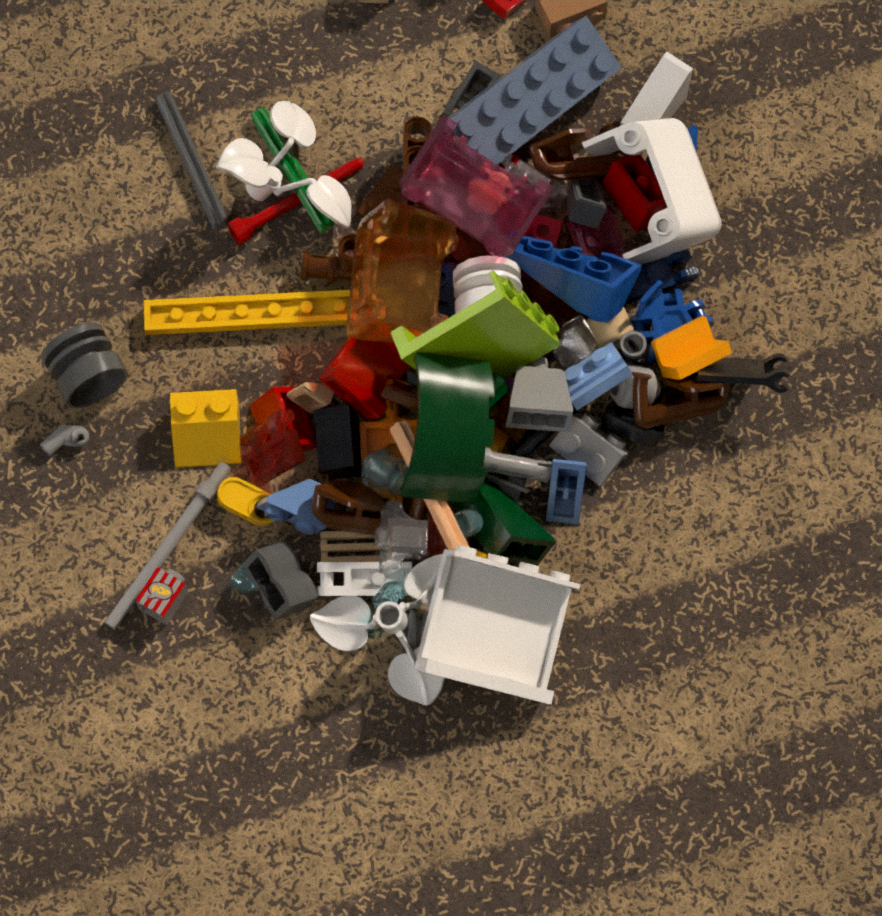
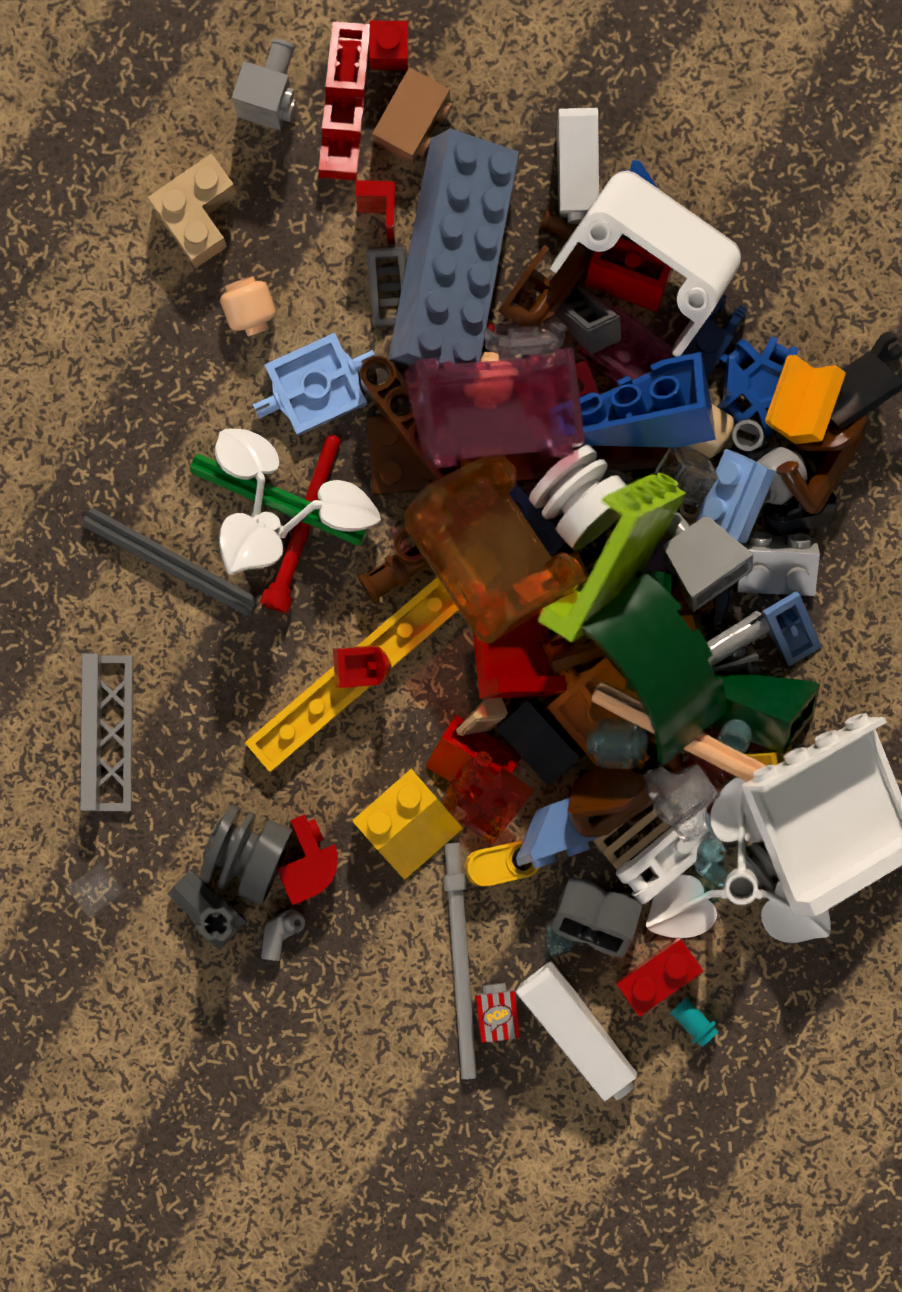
camera: 35 degrees left, 15 degrees up
(29, 386) = (212, 914): none -> dark grey piece
(55, 221) = (92, 729): none -> light grey fence
(117, 412) = (313, 872): none -> red brick
(205, 641) = (577, 1032): none -> white slope
(257, 303) = (360, 666): none -> red plate
(290, 651) = (659, 976): none -> red brick
(290, 703) = (694, 1022): none -> teal pin
(371, 42) = (248, 305): none -> light nougat head
(372, 119) = (314, 384): none -> light blue plate
(506, 35) = (378, 198): none -> red panel

